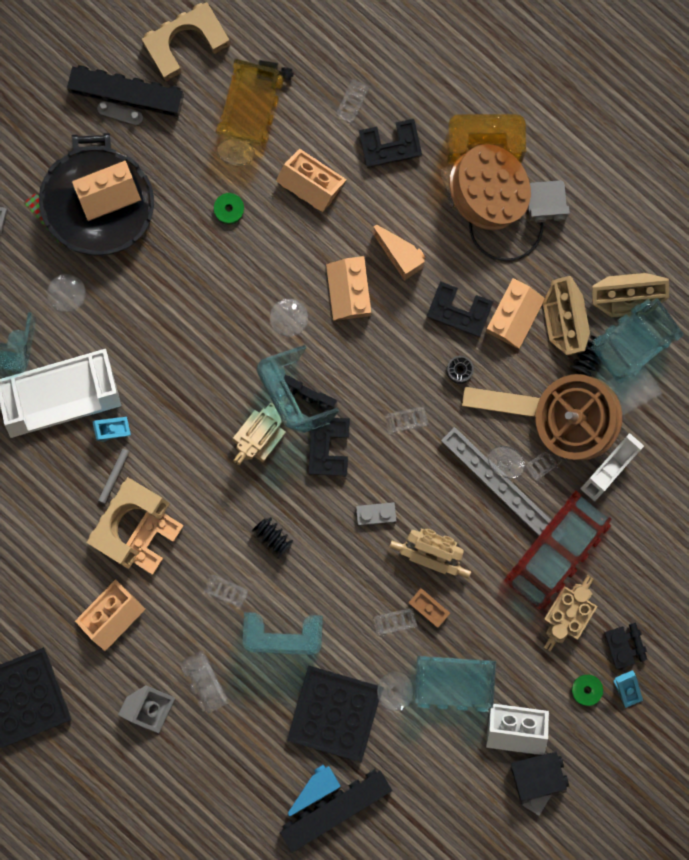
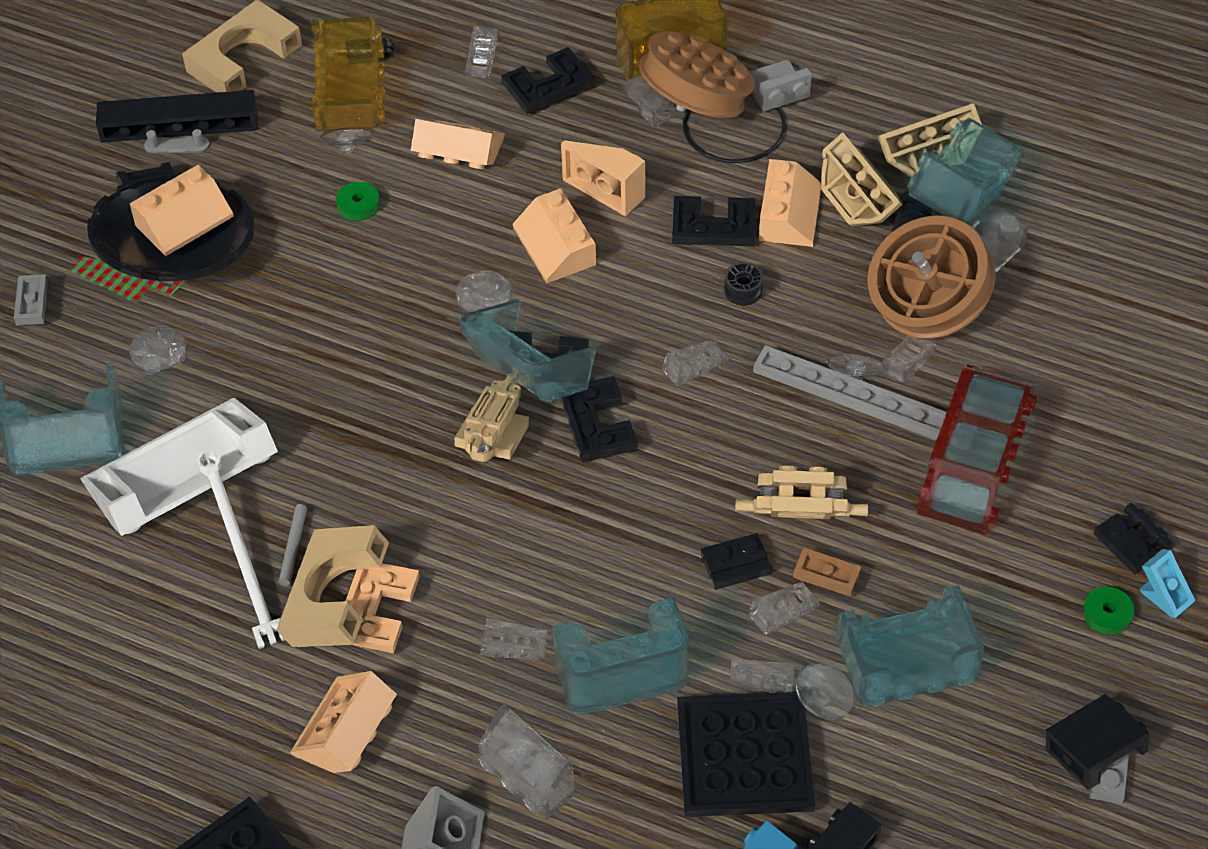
camera: 15 degrees left, 30 degrees down
(83, 532) = (266, 625): none -> white hinge
(111, 428) = (270, 480): medium azure slope -> none
(273, 537) = (558, 547): black piece -> none
(370, 671) = (763, 675): none -> clear slope
(376, 513) = (698, 482): light grey plate -> none
(378, 579) = (736, 561): none -> black plate
(500, 402) = (815, 306): tan tile -> none
(518, 729) = (1033, 690): white slope -> none
(569, 613) = (1032, 512): tan piece -> none
(612, 467) = (1005, 323): white arch -> none

